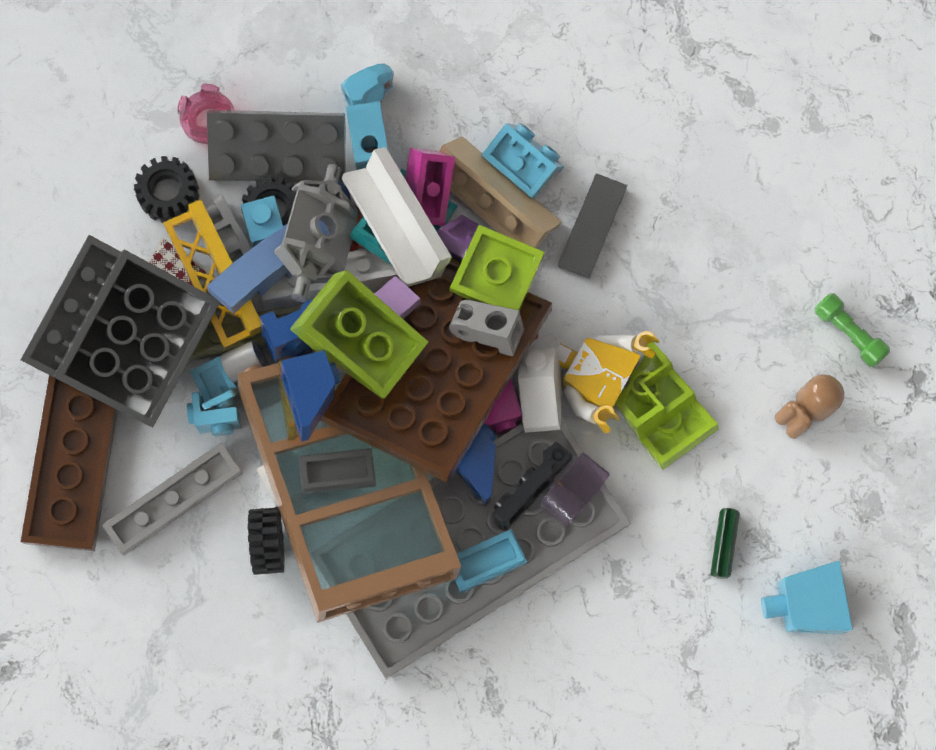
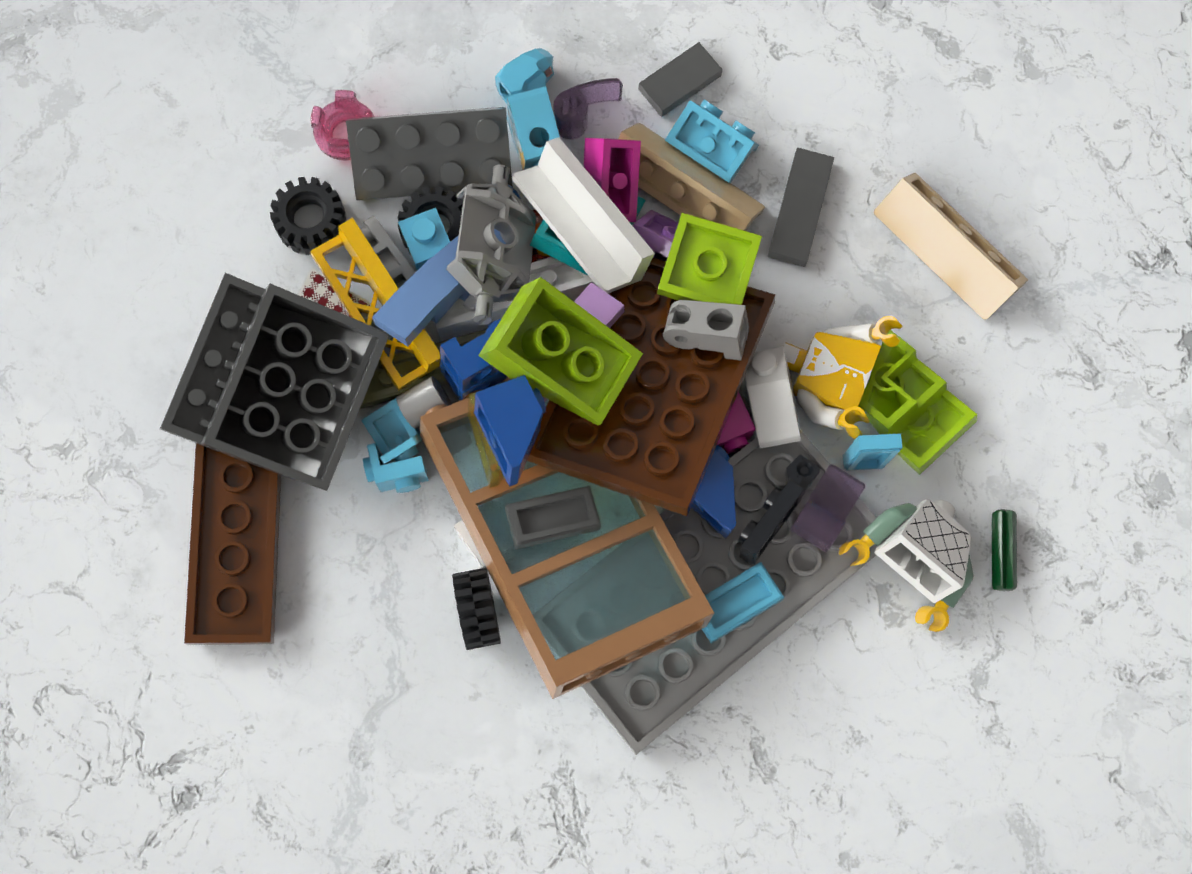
camera: 10 degrees left, 0 degrees up
(172, 499) = (358, 572): light grey plate -> none
(408, 112) = (576, 102): none -> clear purple panel
(503, 101) = (680, 79): none -> dark grey tile
(619, 446) = (871, 451): none -> medium azure tile
(653, 534) = (926, 550): none -> white torso
(717, 273) = (949, 245): none -> panel
(811, 601) = (1115, 606): medium azure torso -> none
(814, 402) = (1082, 378): medium nougat piece -> none
(871, 349) = (1136, 312): bright green piece -> none

